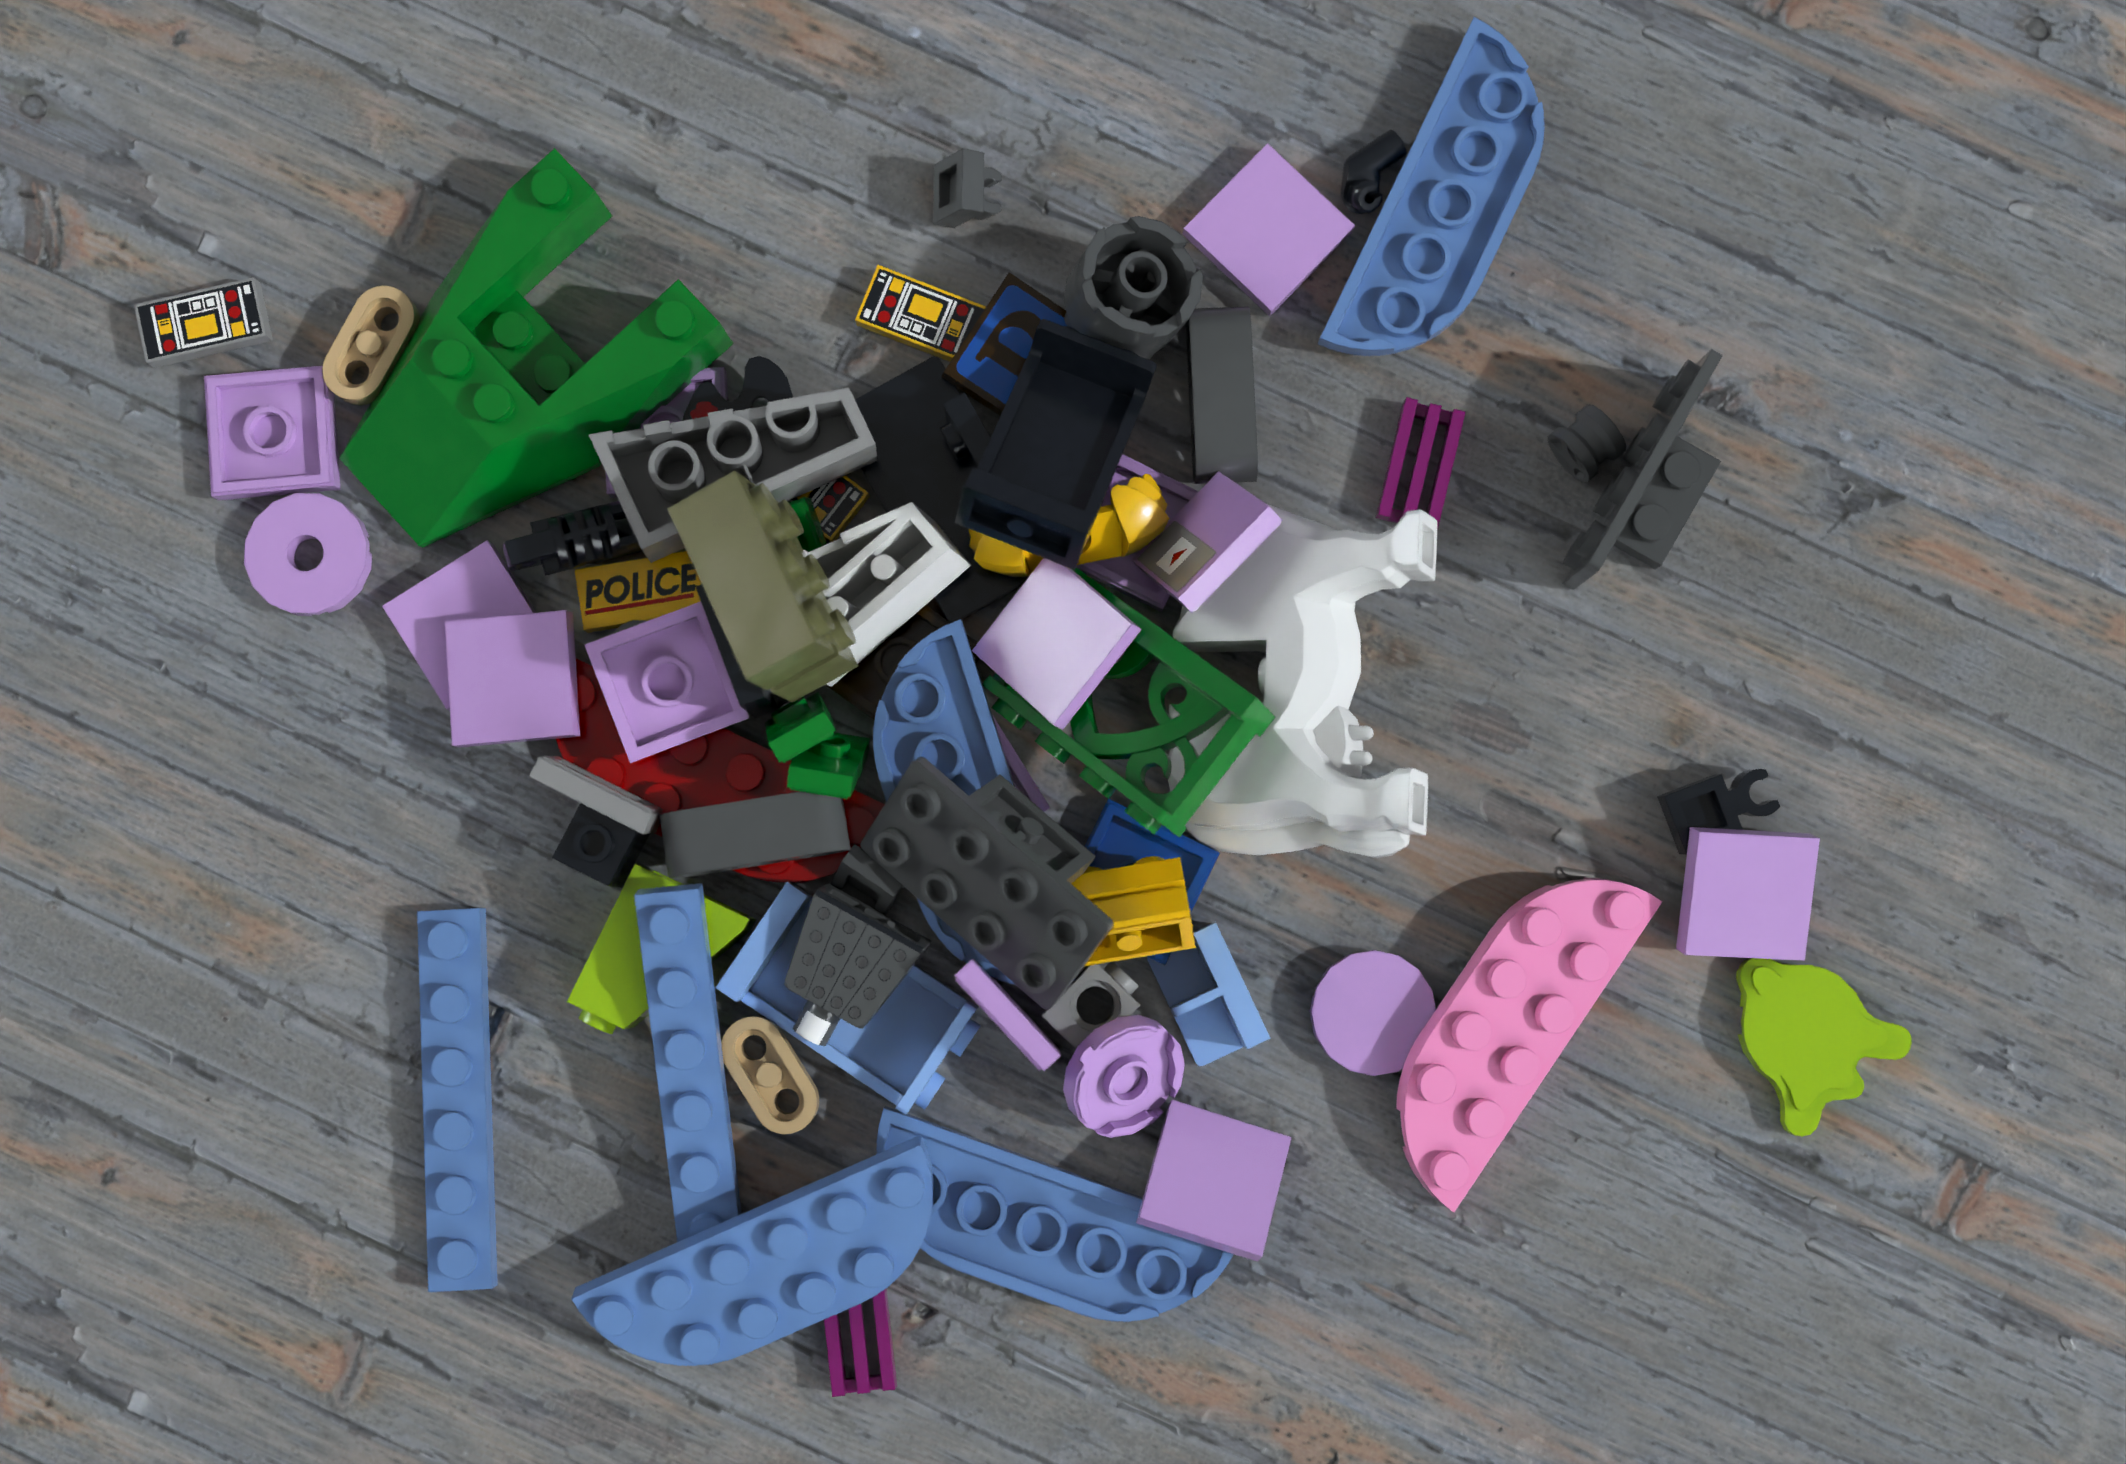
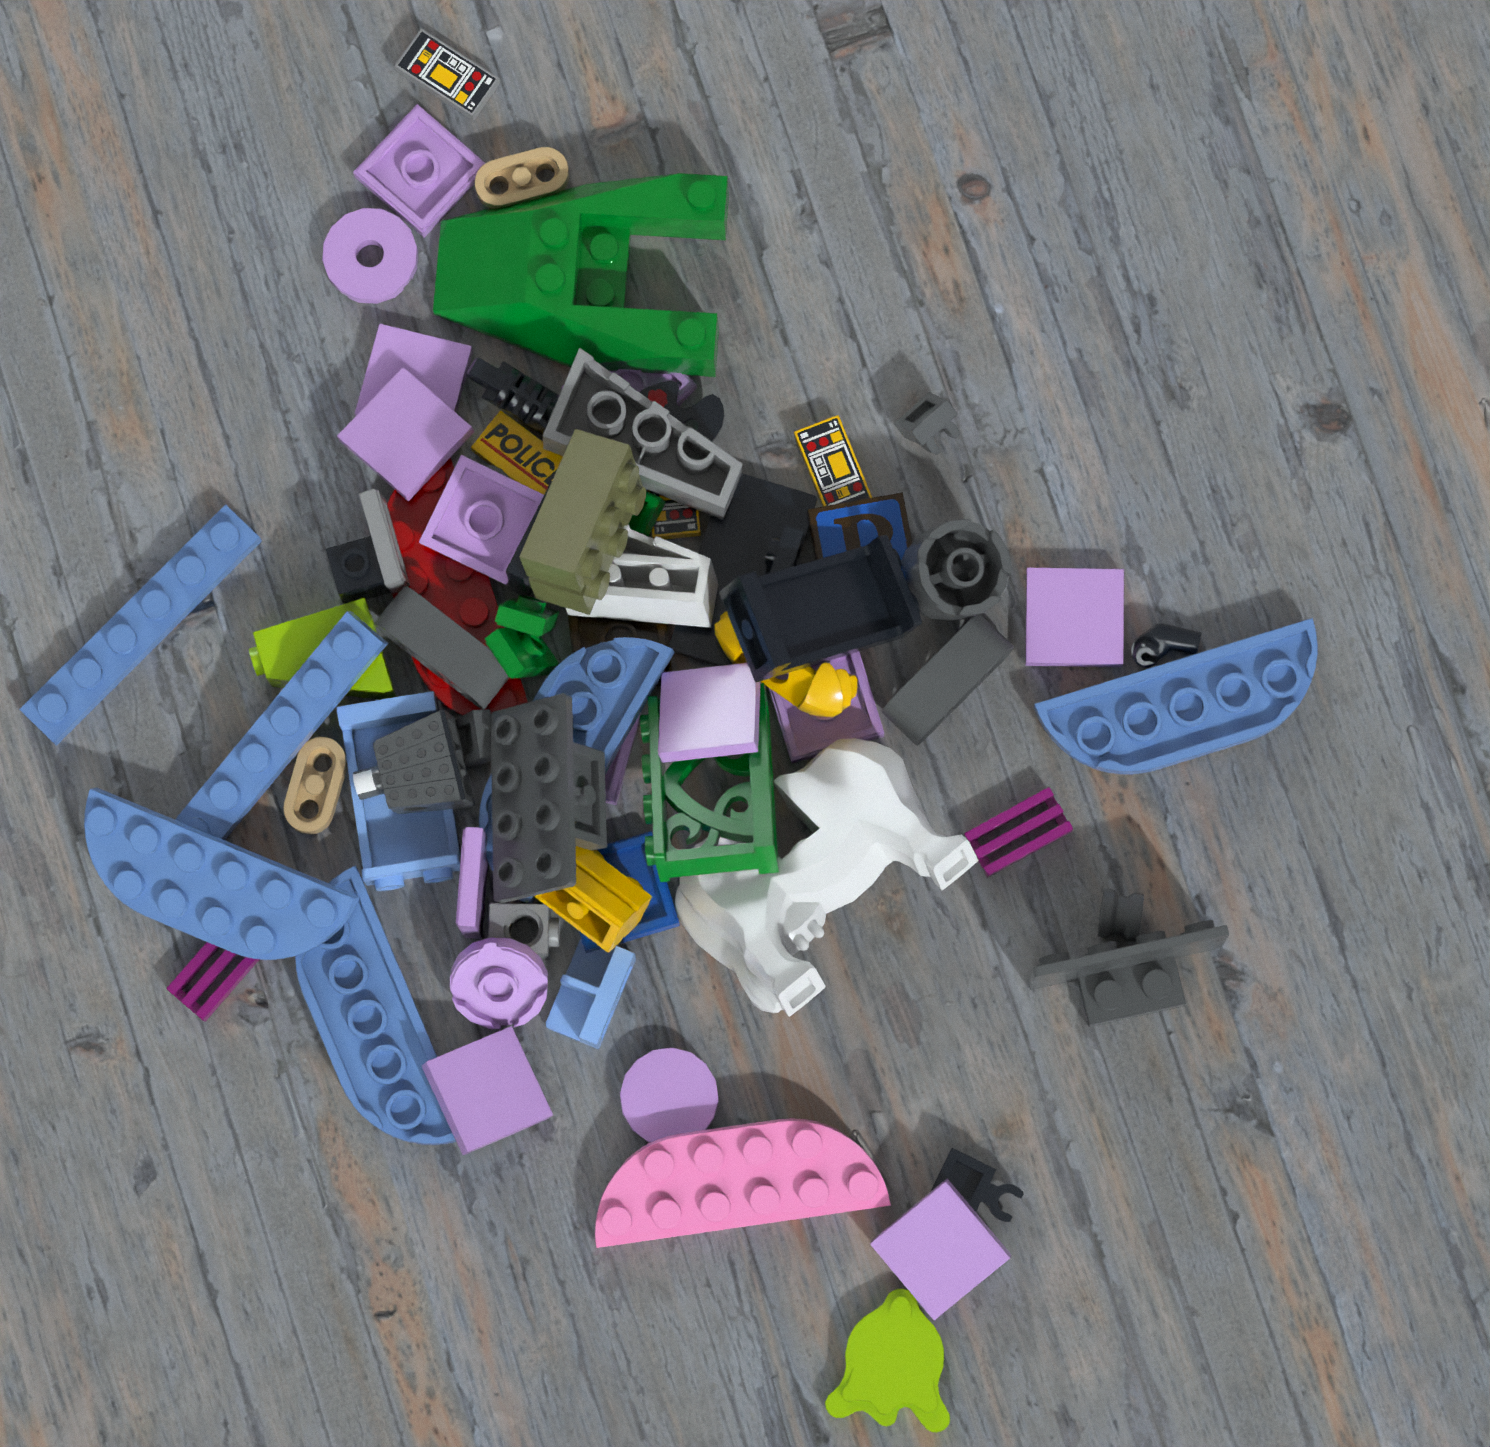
camera: 55 degrees right, 5 degrees down
(1207, 541) = (845, 744): lavender tile -> none

